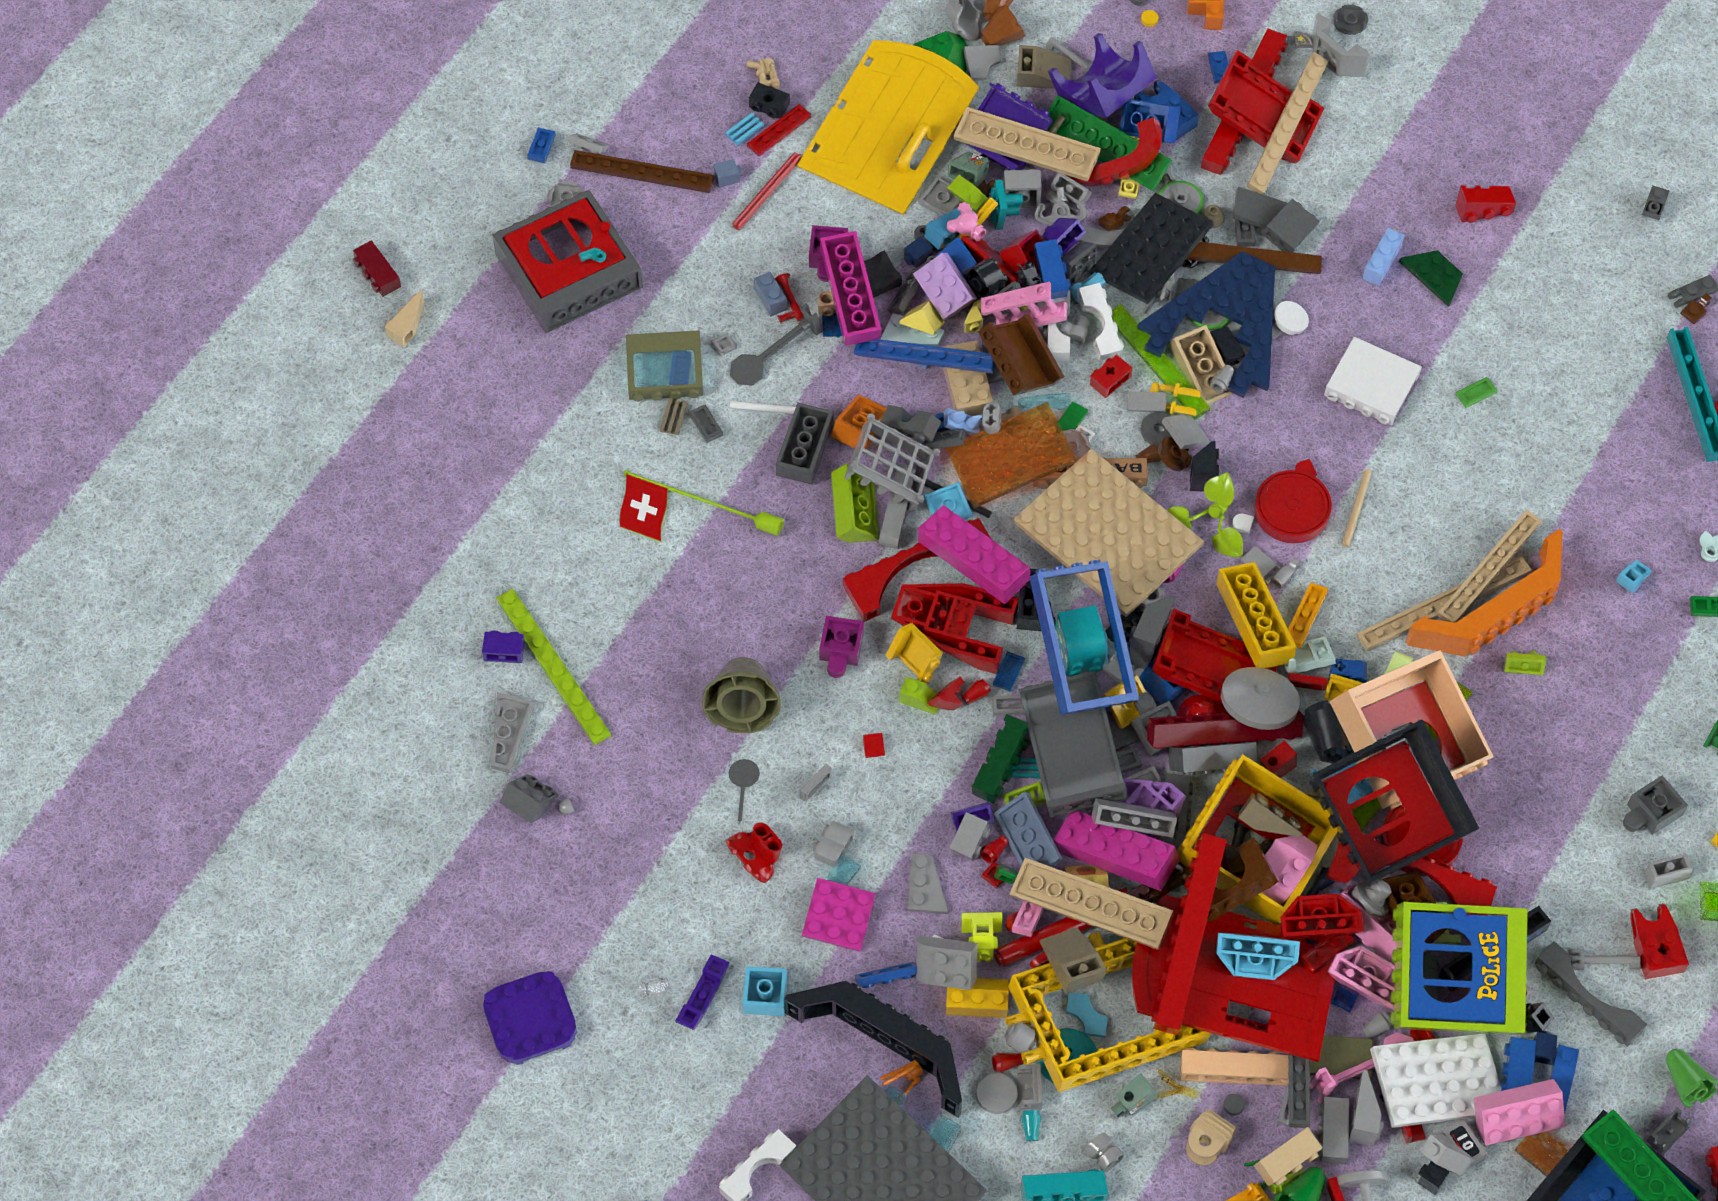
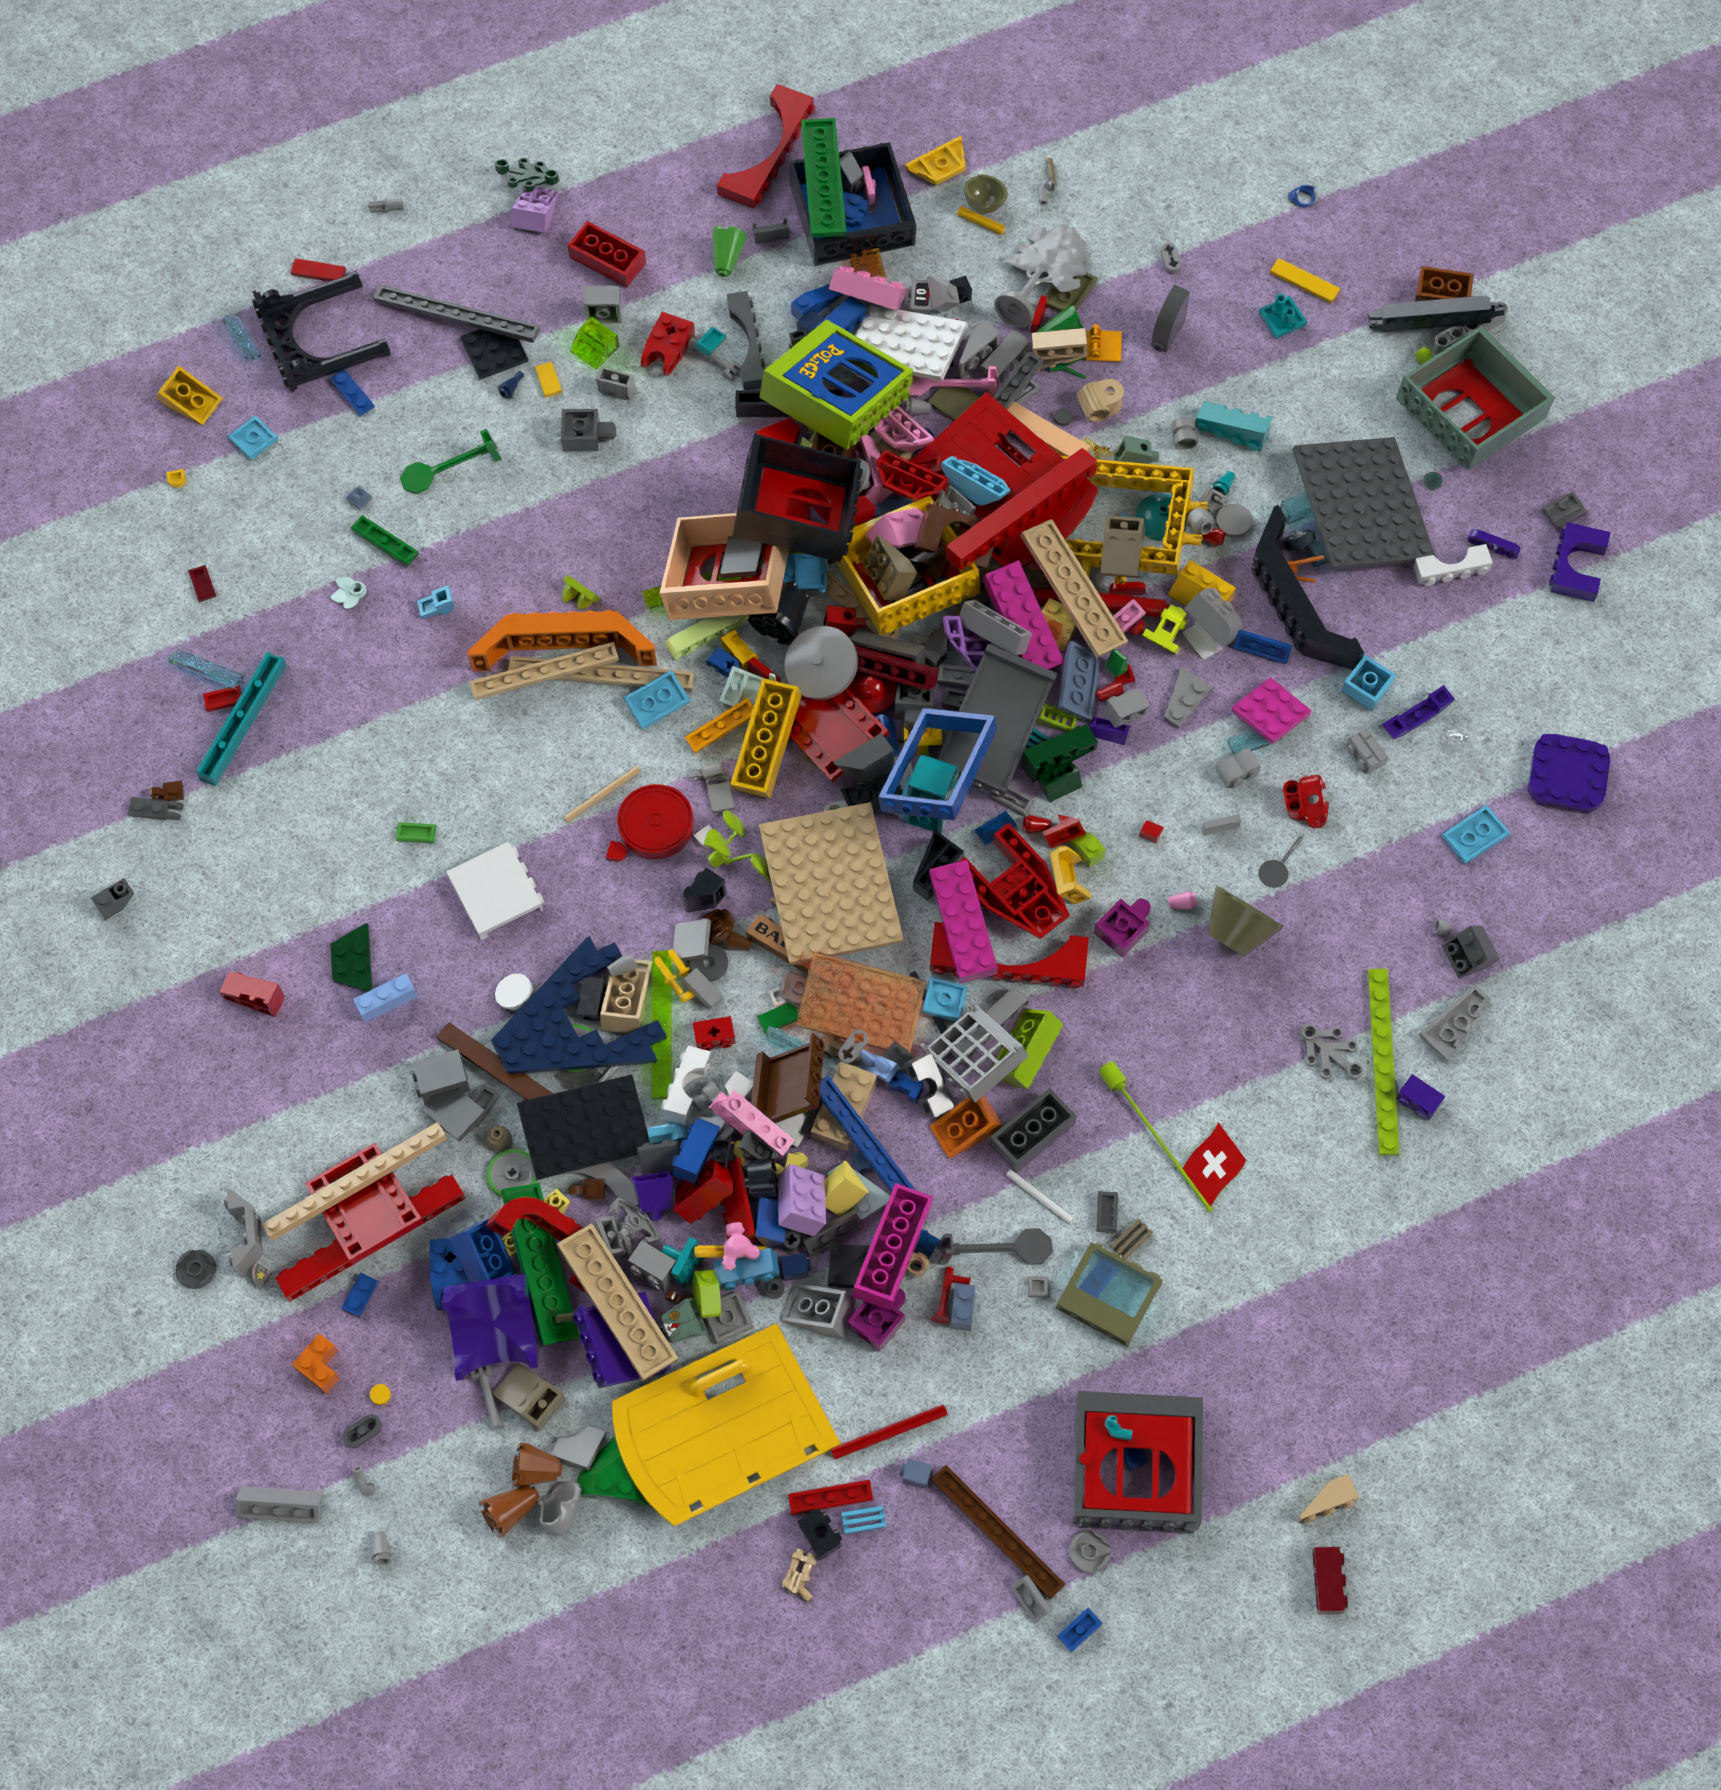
camera: 145 degrees left, 5 degrees up
(584, 912) = (1475, 834): none -> medium azure tile
(604, 648) = (1328, 1049): none -> light grey plant
(728, 928) = (1366, 751): none -> light grey brick
(804, 700) = (1183, 901): none -> bright pink cone
(879, 233) = (819, 1309): none -> light grey slope
(919, 1100) = (1299, 539): none -> black wheel
(982, 740) = (1060, 781): none -> dark green brick
(1258, 920) = (956, 500): none -> light grey hinge
(1377, 606) = (657, 699): none -> medium azure tile
(1620, 970) = (710, 341): none -> teal tile

